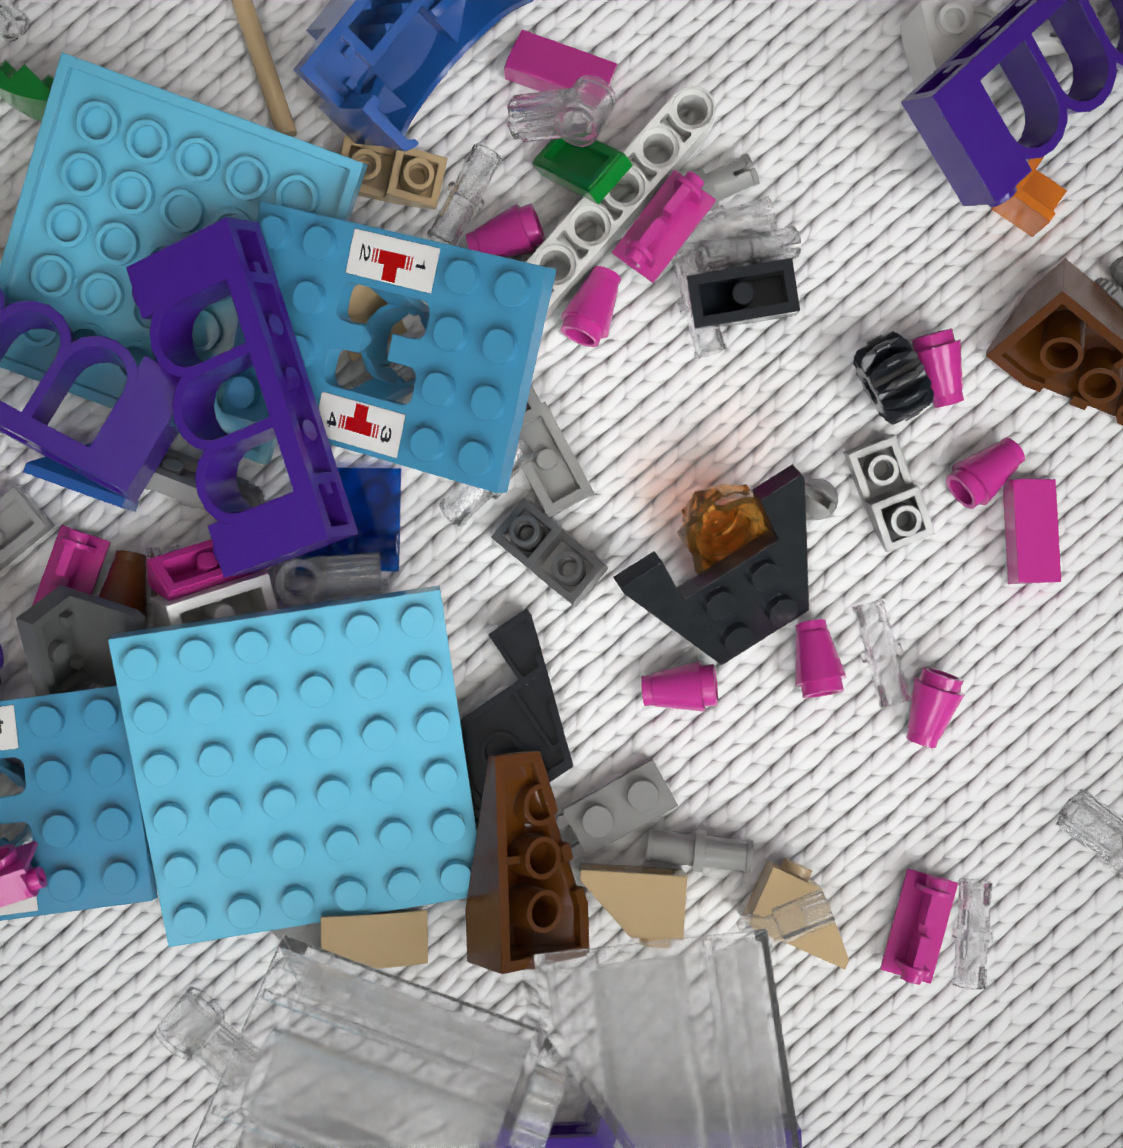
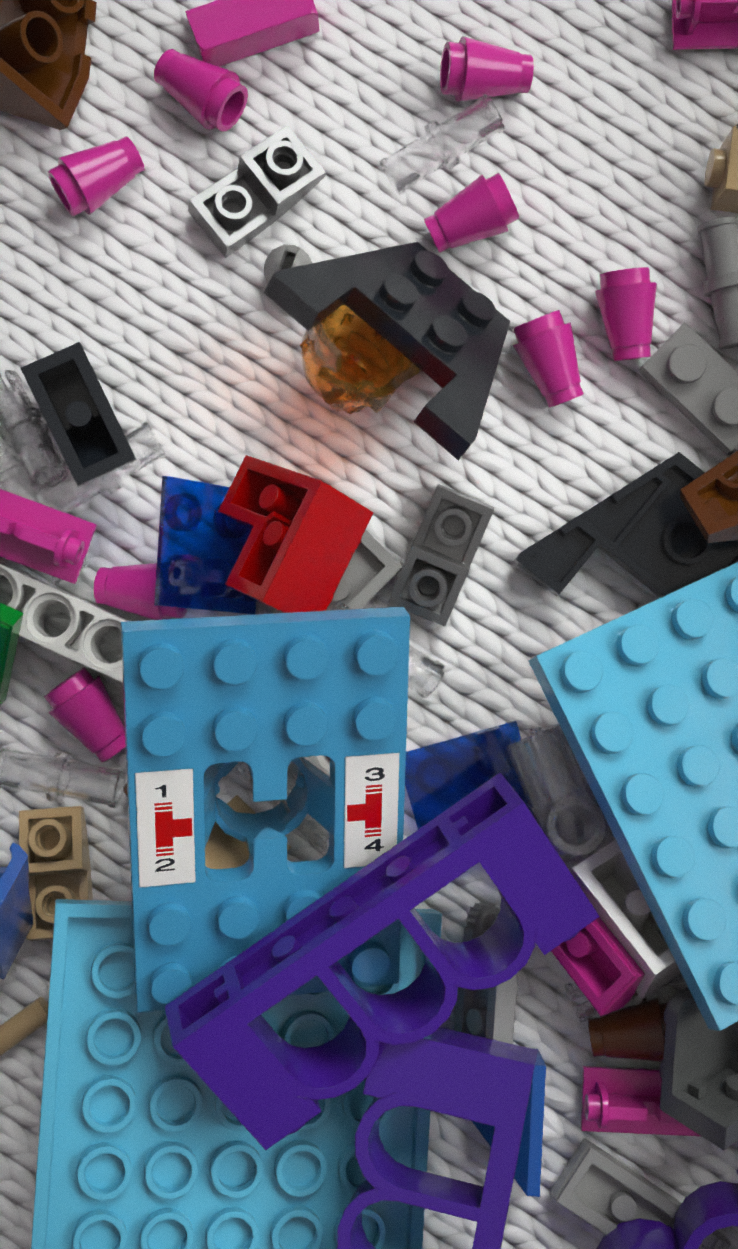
camera: 100 degrees left, 0 degrees up
(589, 434) = (297, 537): none -> red brick
(607, 368) = (198, 549): none -> clear blue hinge
(699, 761) = (627, 311): none -> dark pink cone
(893, 377) = (124, 218): black gear -> none

